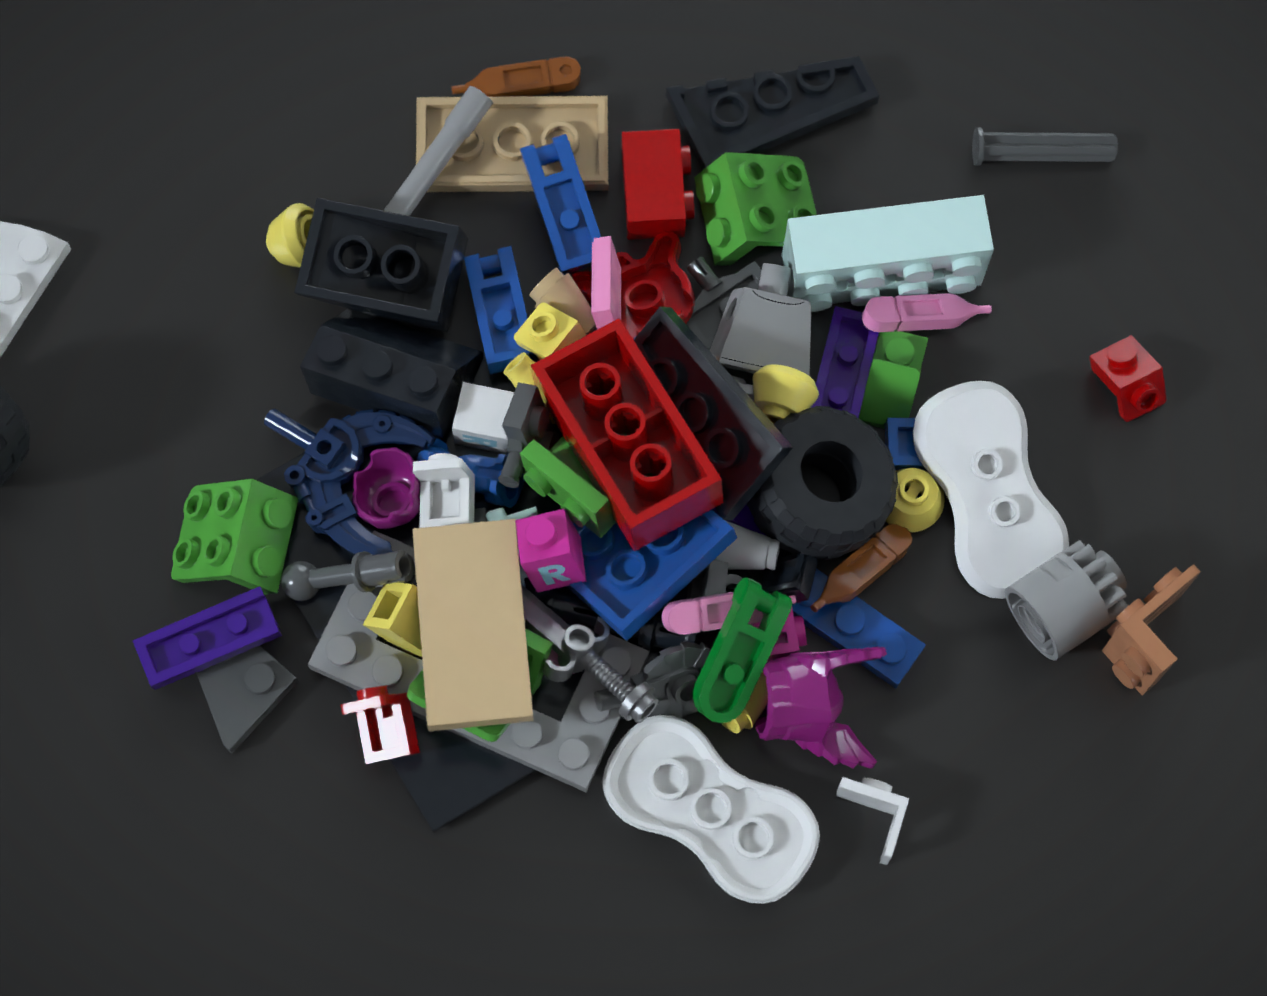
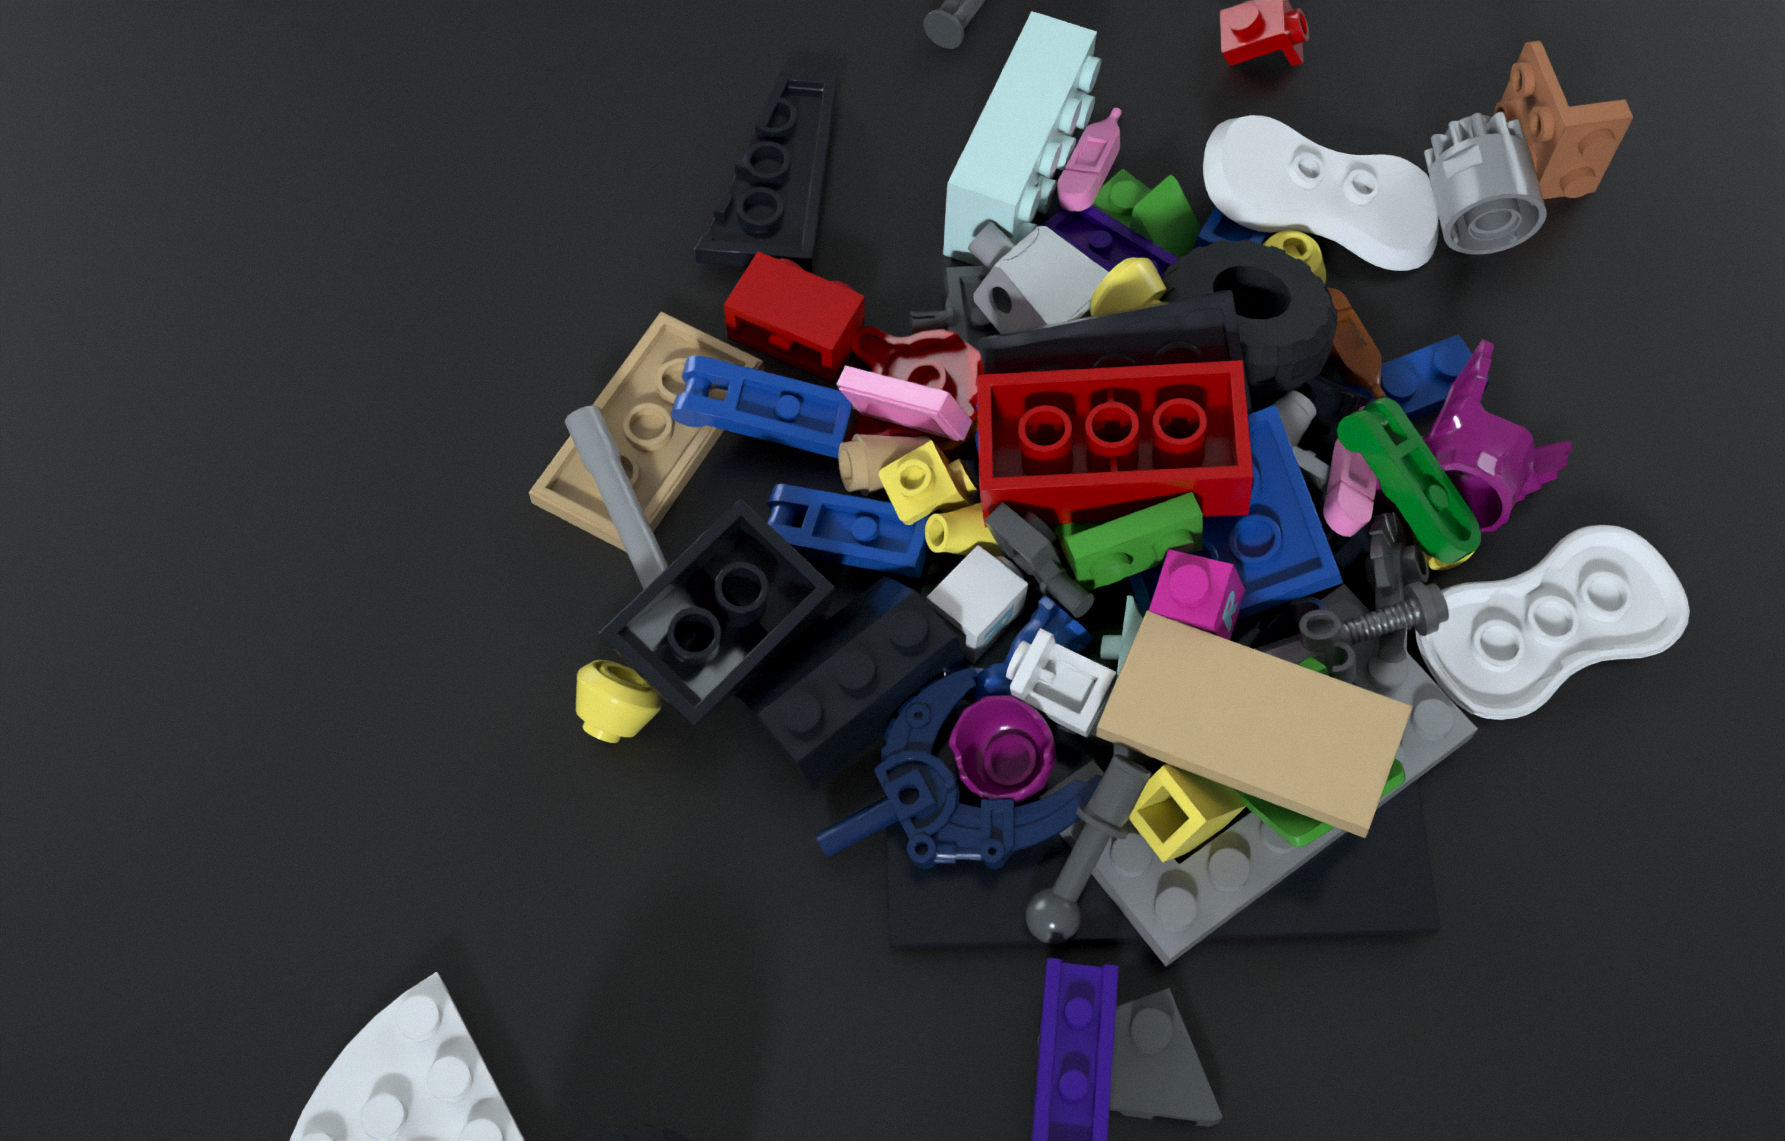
camera: 60 degrees left, 10 degrees down
(235, 534) = (949, 967): bright green bracket -> none
(384, 724) = (1298, 906): bracket -> none
(526, 78) = (582, 378): dark orange piece -> none
(750, 201) = (880, 243): bright green bracket -> none
(877, 796) = (1633, 451): white bracket -> none

